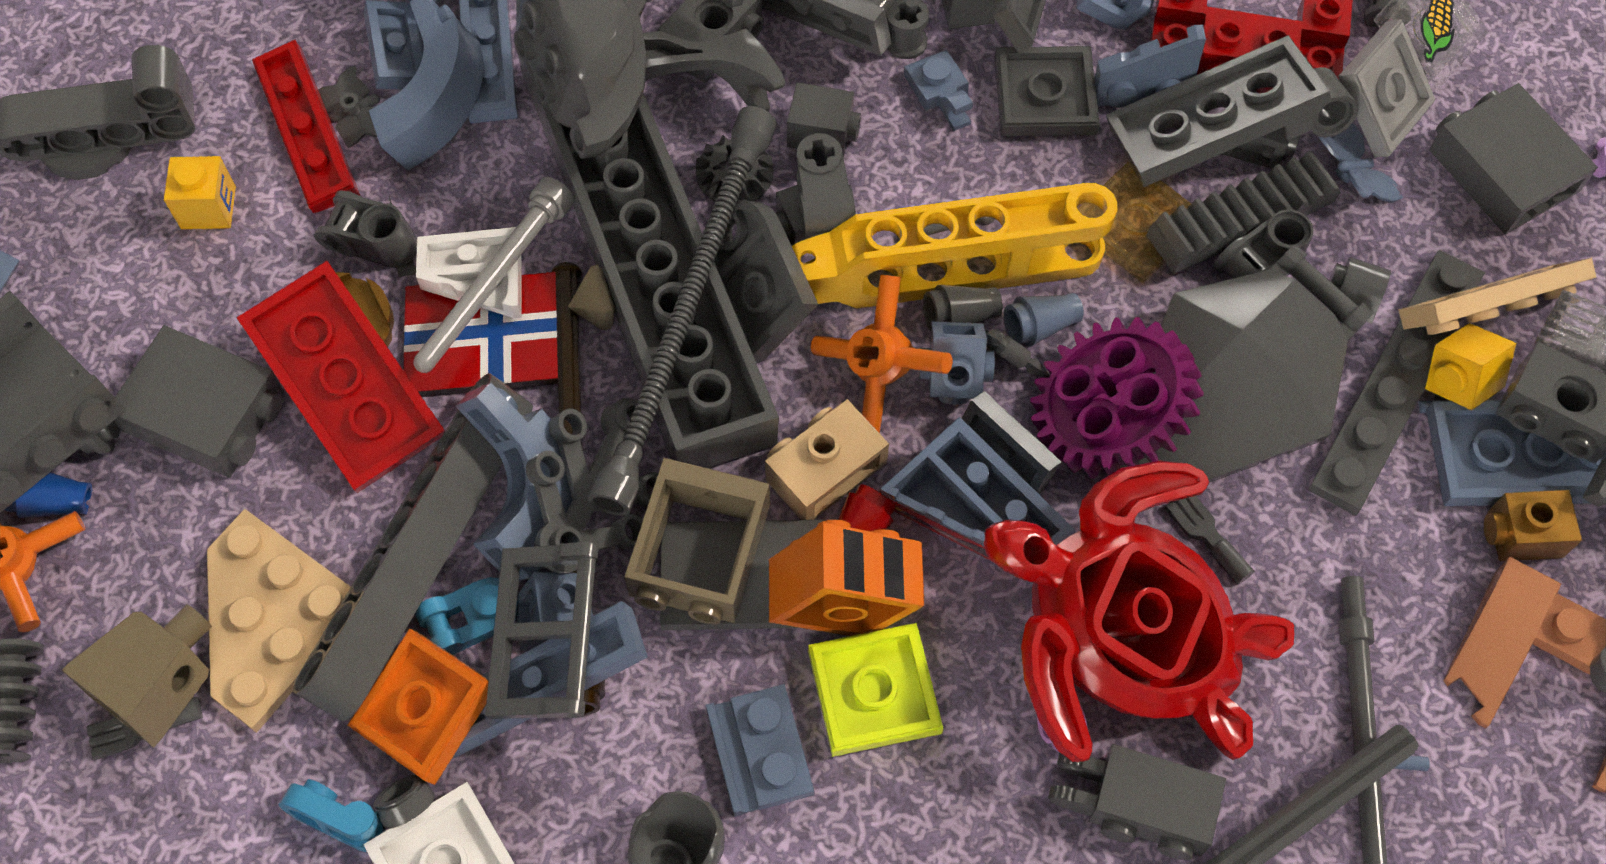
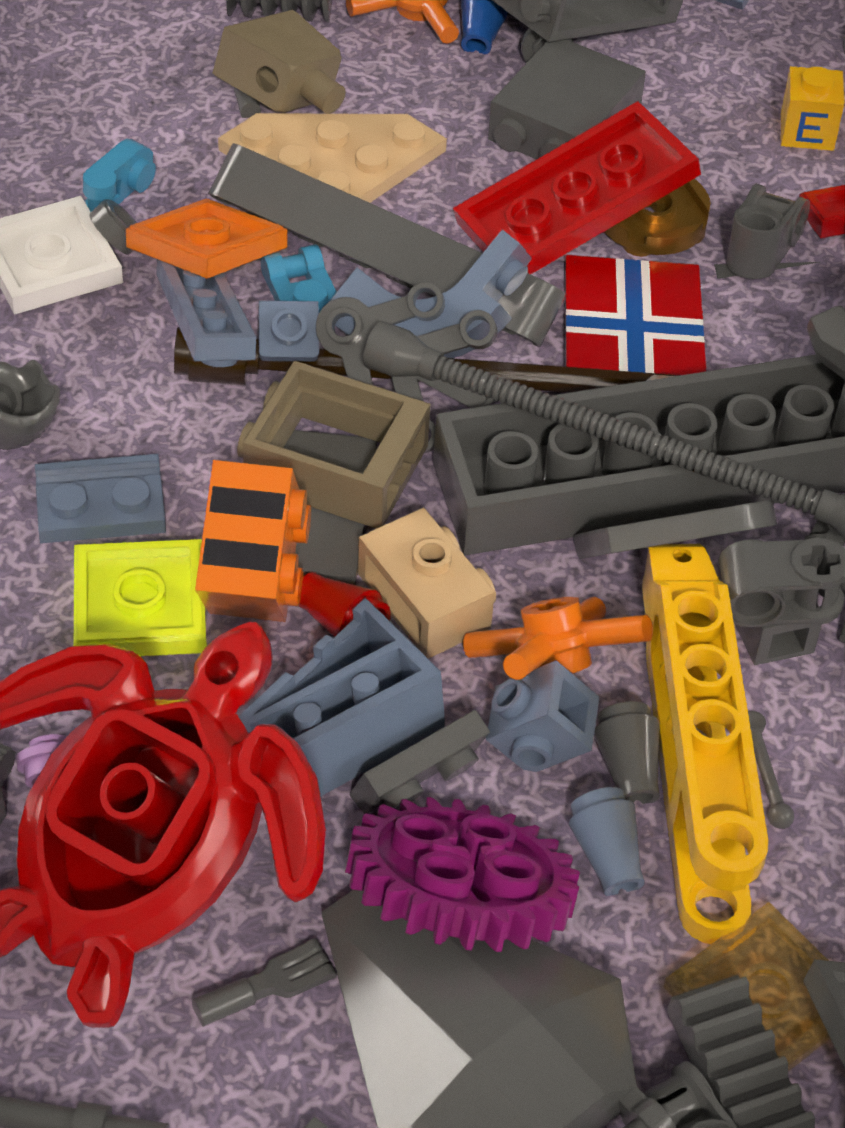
camera: 95 degrees right, 15 degrees down
(453, 261) = (709, 307): white wing -> none
(507, 631) = (162, 298): dark grey window -> none
(548, 203) = (687, 299): light grey piece -> none
(1014, 352) = (565, 767): dark grey piece -> none

